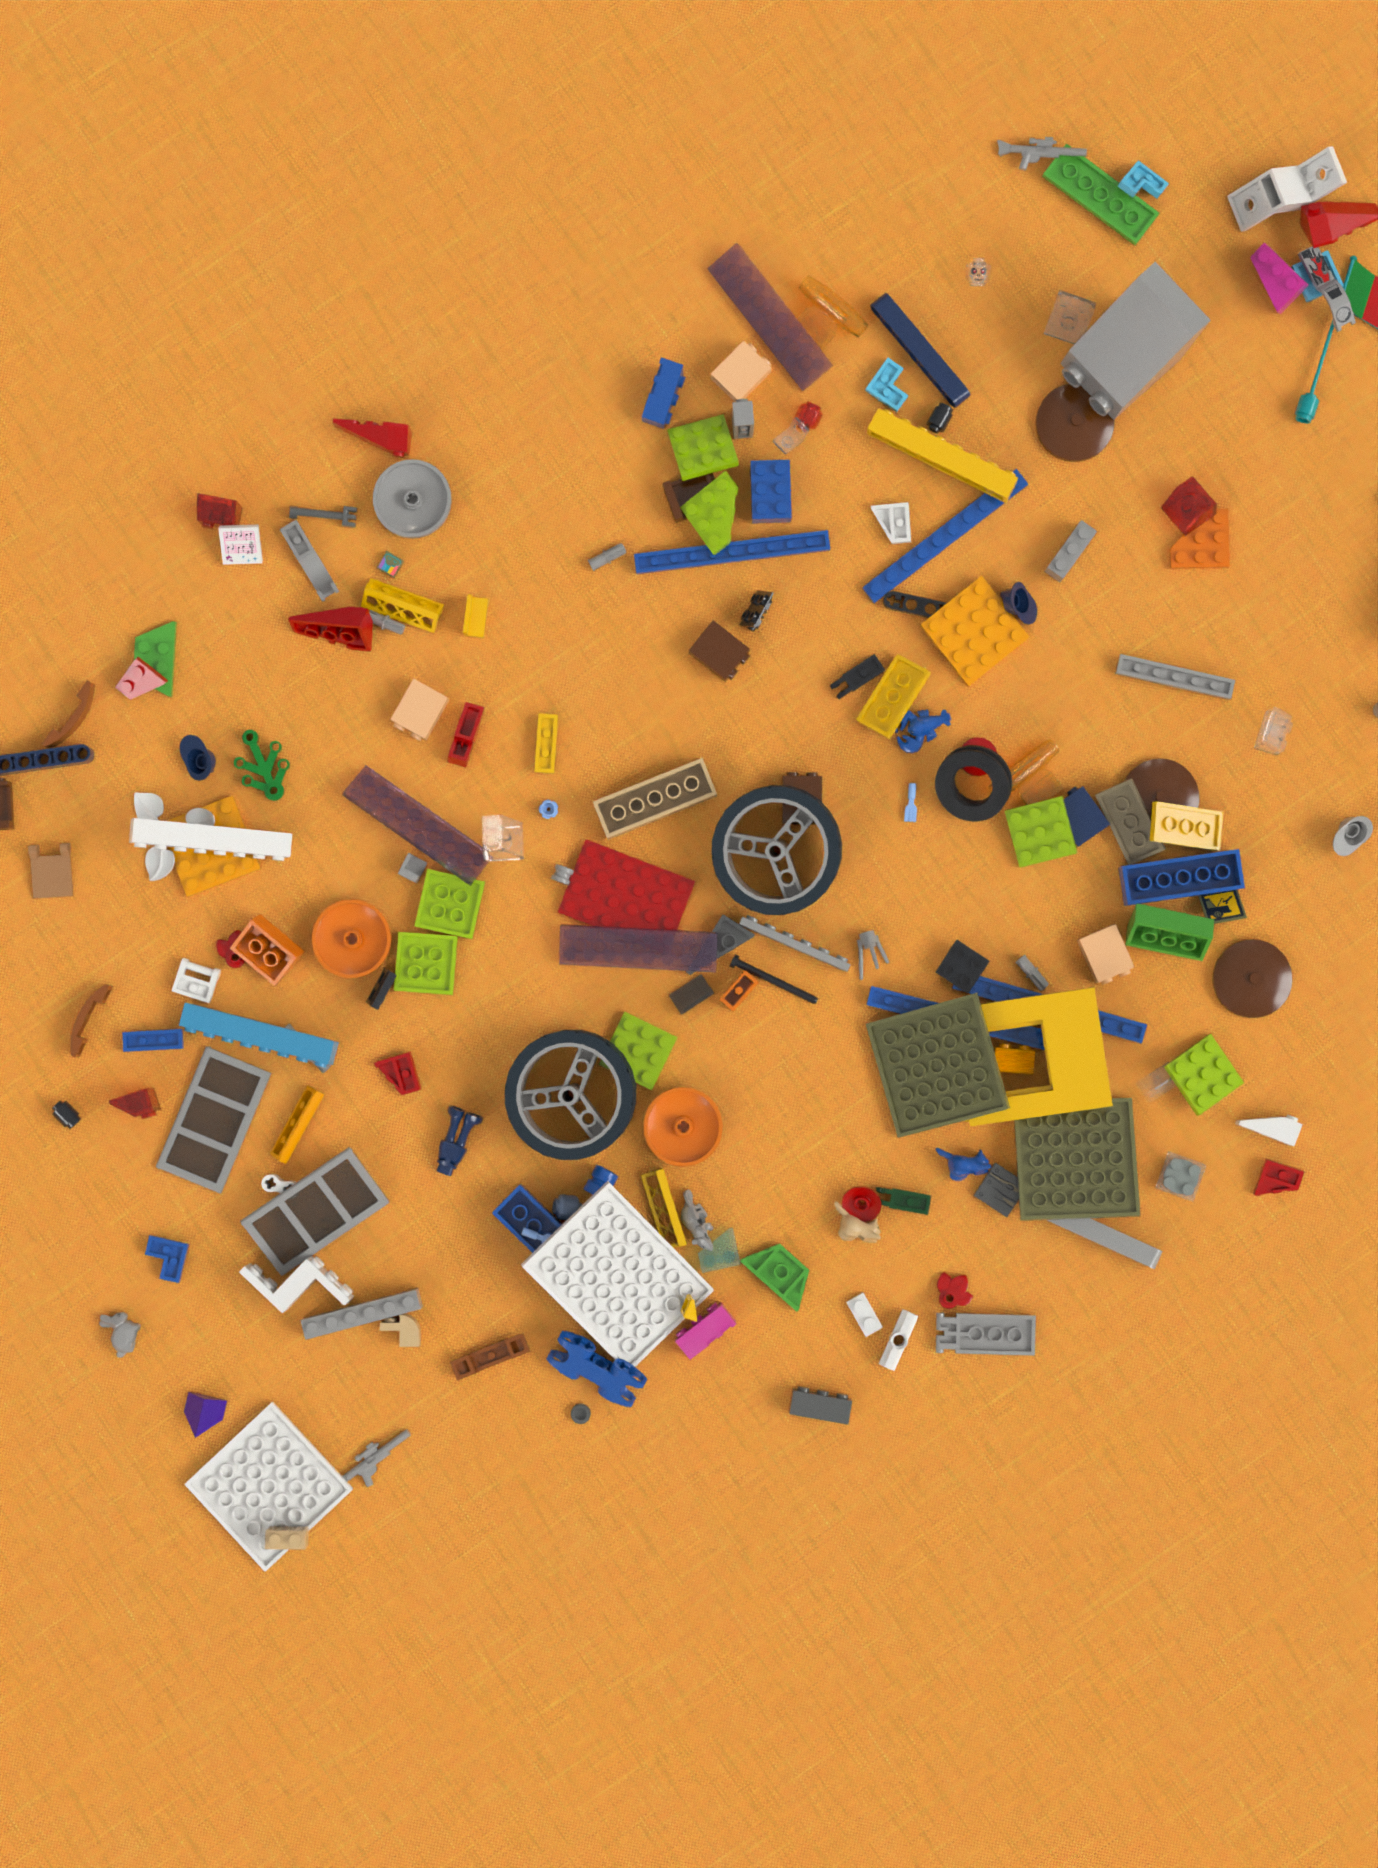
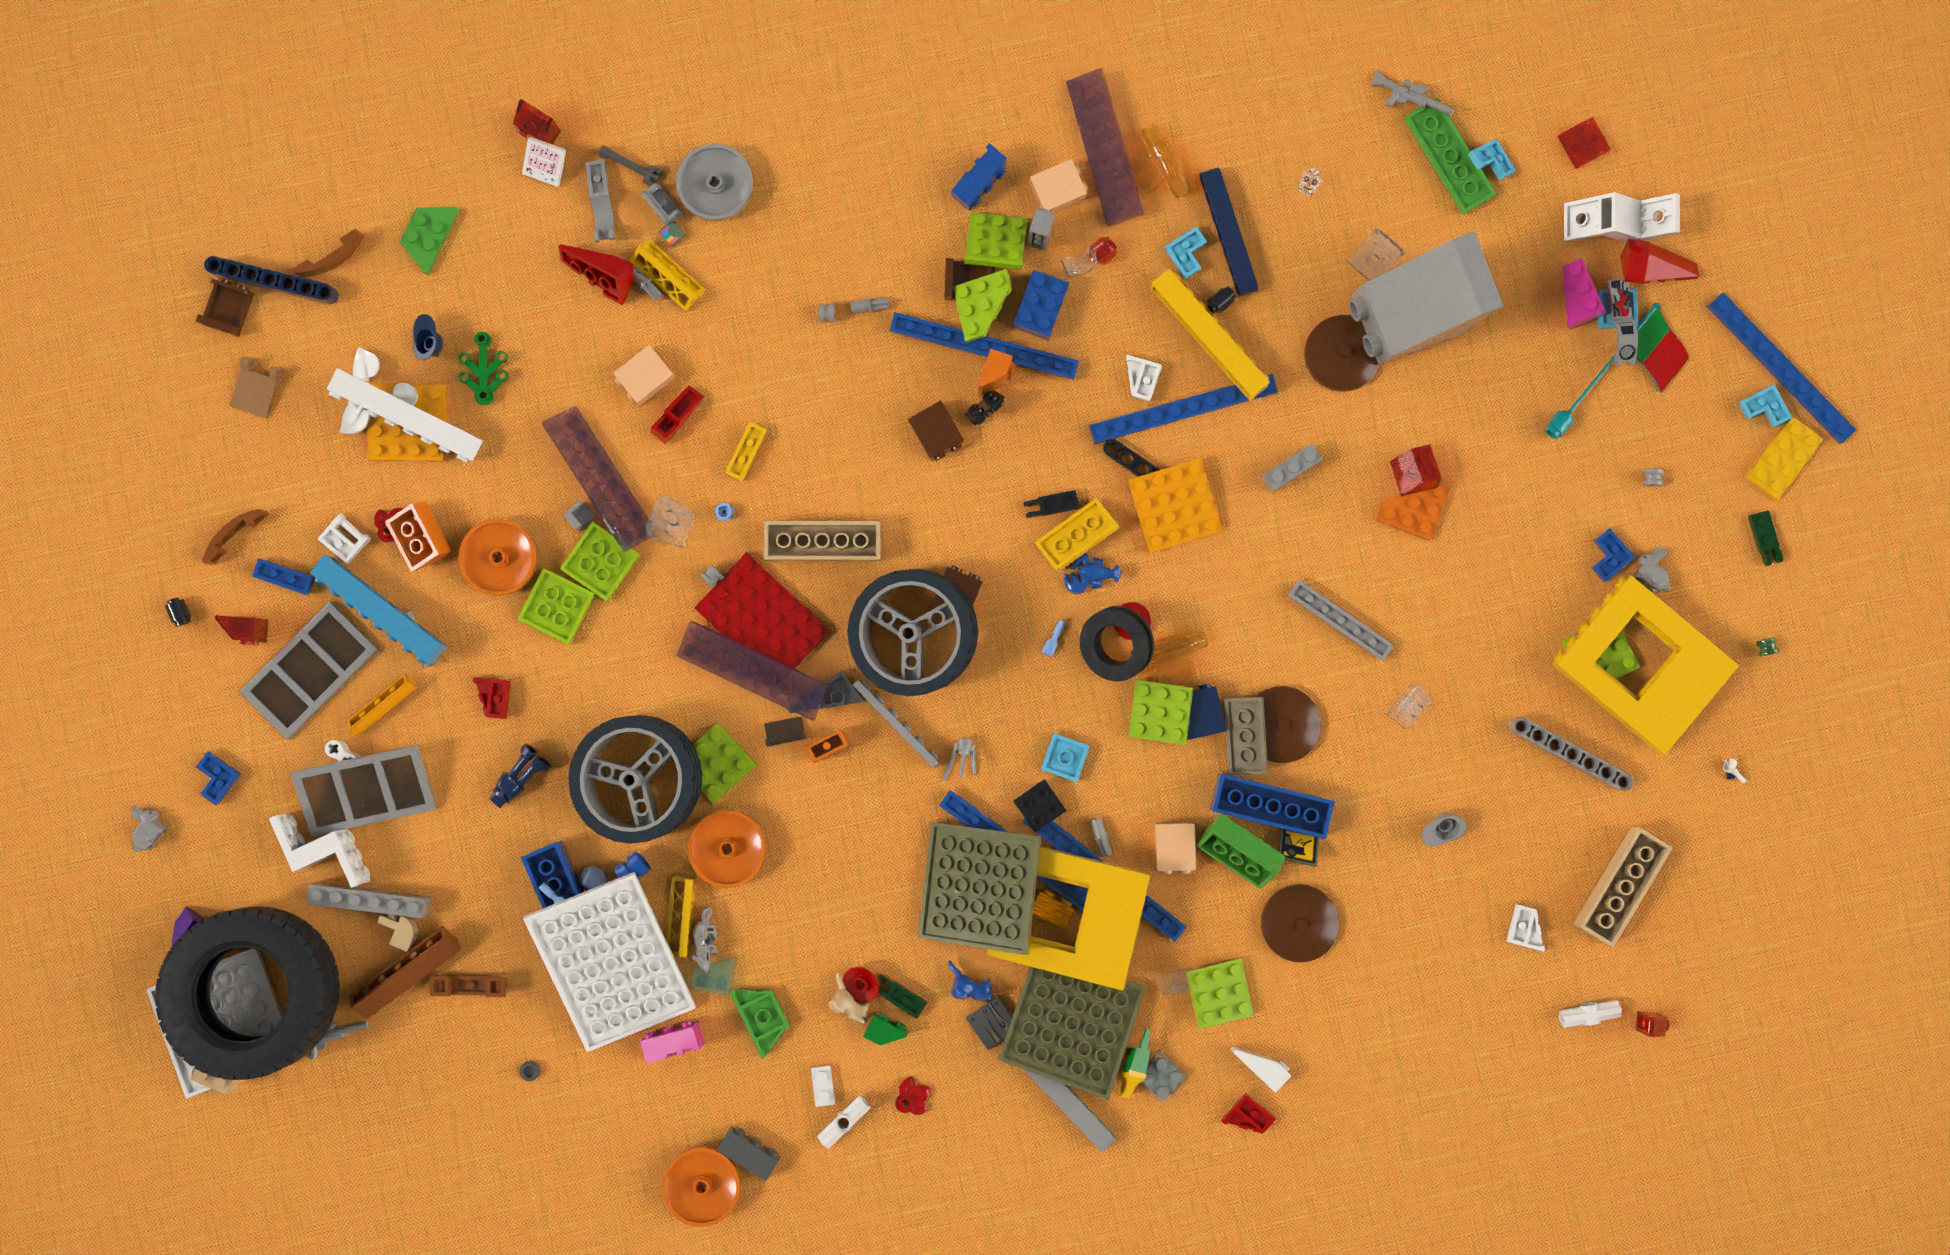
camera: 25 degrees right, 0 degrees up
(139, 679) = (404, 246): wing -> none
(226, 1464) = (187, 1006): none -> black tyre
(369, 540) = (662, 204): none -> light grey hinge
(381, 988) = (505, 613): black plate -> none
(389, 436) = (716, 117): red wedge -> none
(424, 1368) = (404, 972): none -> dark orange brick
(475, 616) = (728, 311): yellow panel -> none
(569, 580) = (826, 312): none -> light grey wheel
(608, 1375) = (568, 1049): blue piece -> none
(688, 1308) = (663, 1016): yellow slope -> none
(755, 567) = (995, 372): none -> orange slope
(772, 979) = (863, 747): black bar -> none
(789, 1454) = (701, 1186): none -> orange dish
(901, 1239) = (884, 1031): none -> green slope
(967, 911) = (1065, 757): none -> medium azure plate
(986, 1334) = (926, 1149): light grey hinge -> none
(1020, 602) = (1226, 496): dark blue piece -> none
(1153, 1175) = (1135, 1067): none -> animal
(1186, 826) = (1294, 760): yellow plate -> none
(1222, 131) = (1584, 142): none -> clear red slope

